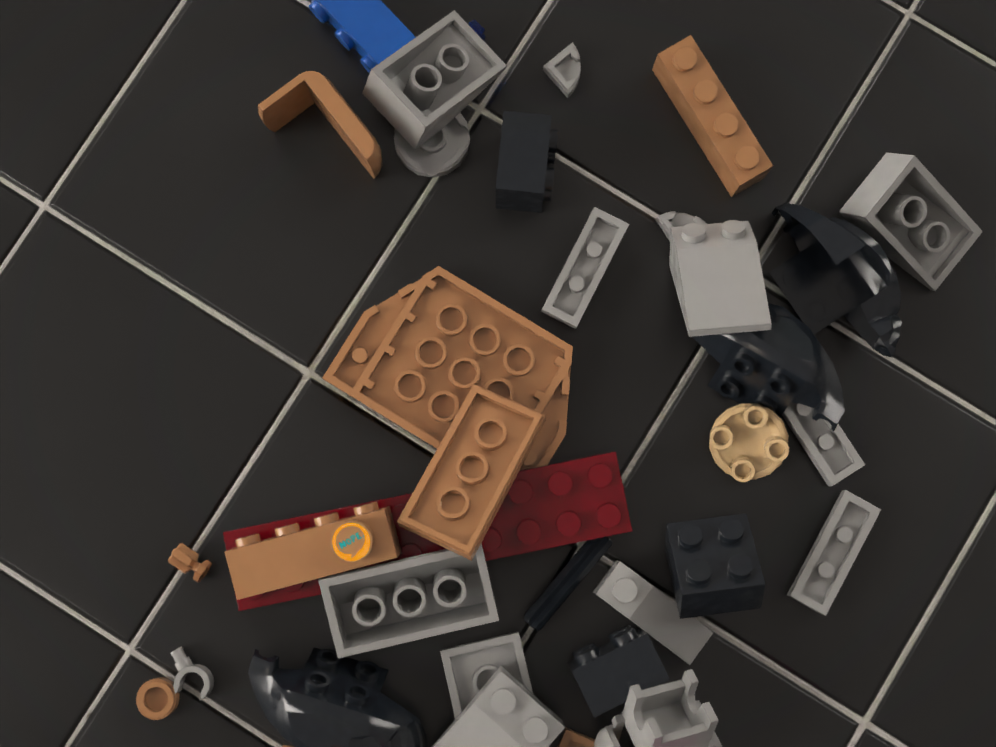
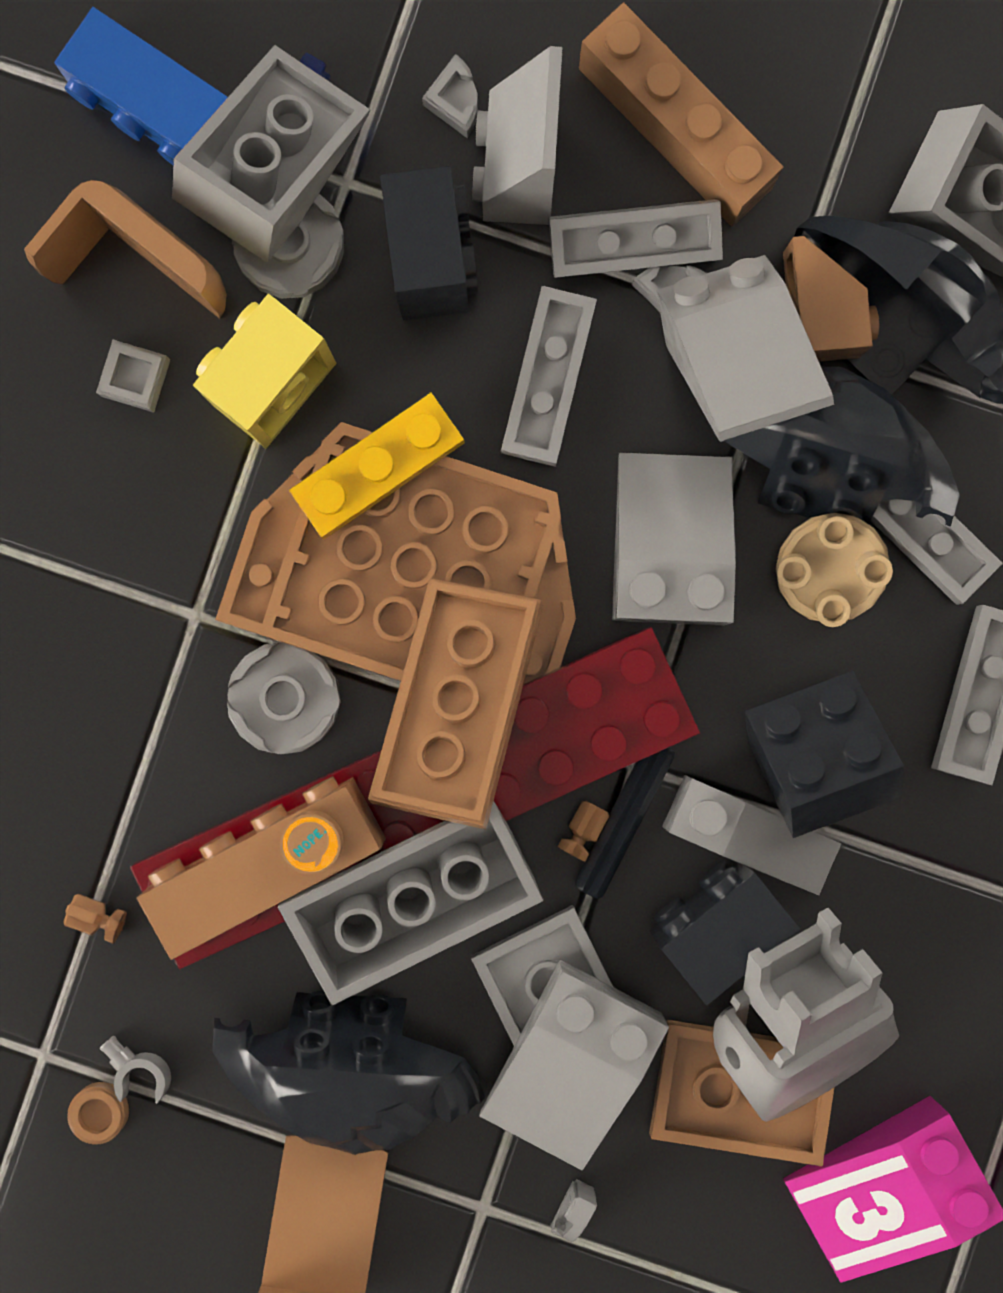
camera: 10 degrees left, 5 degrees up
(306, 203) = (133, 375): none -> light grey tile
(354, 442) = (283, 698): none -> light grey tile
(396, 220) = (265, 369): none -> light yellow brick
(456, 300) = (377, 466): none -> yellow plate
(540, 579) = (586, 827): none -> medium nougat piece
(600, 111) = (520, 143): none -> light grey slope
(644, 397) = (674, 540): none -> light grey slope
(664, 189) = (636, 238): none -> light grey plate
(784, 263) = (829, 303): none -> medium nougat slope

